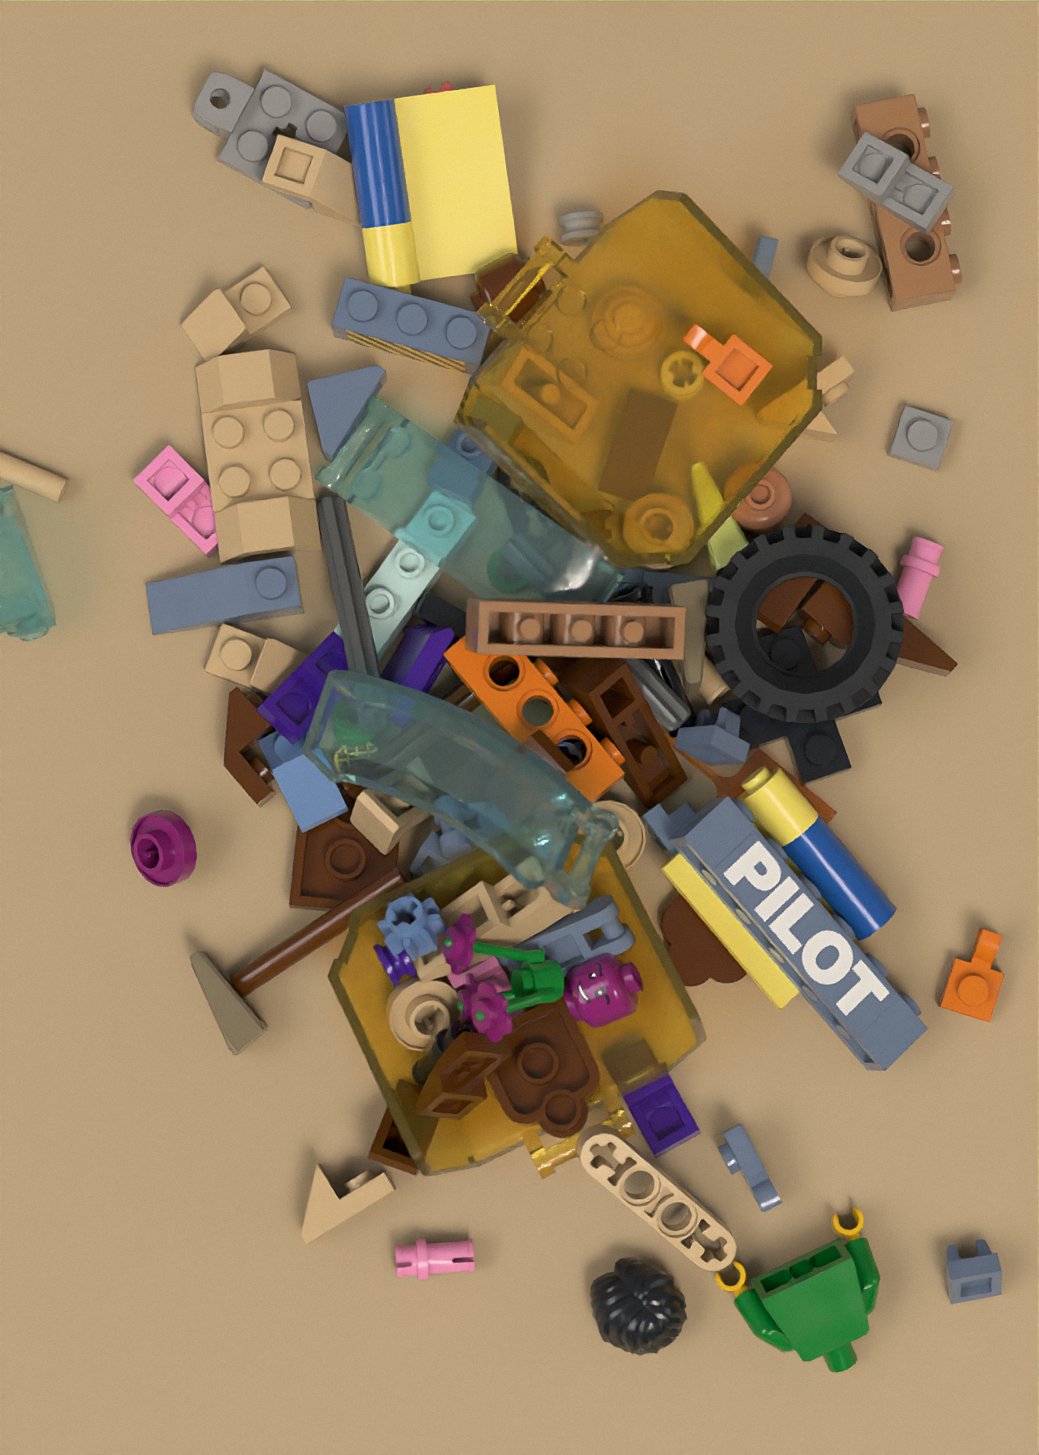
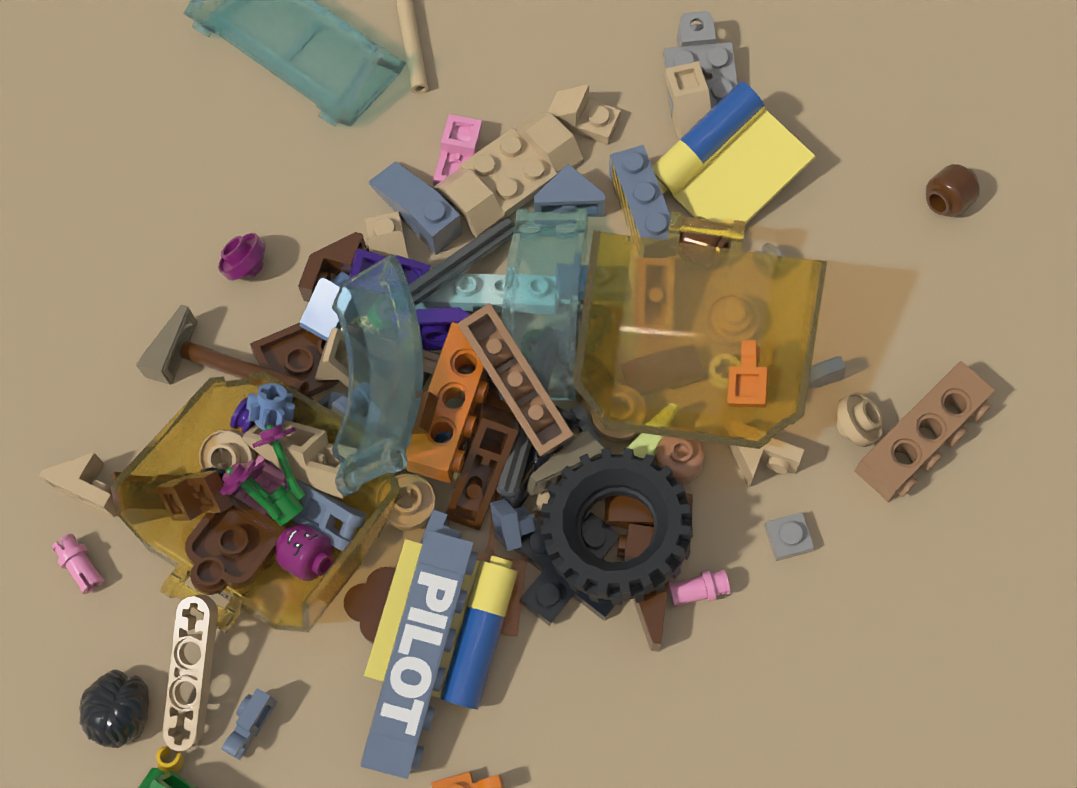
camera: 60 degrees right, 15 degrees down
(661, 1115) = (252, 647): dark purple slope -> none
(895, 183) = (932, 411): light grey slope -> none

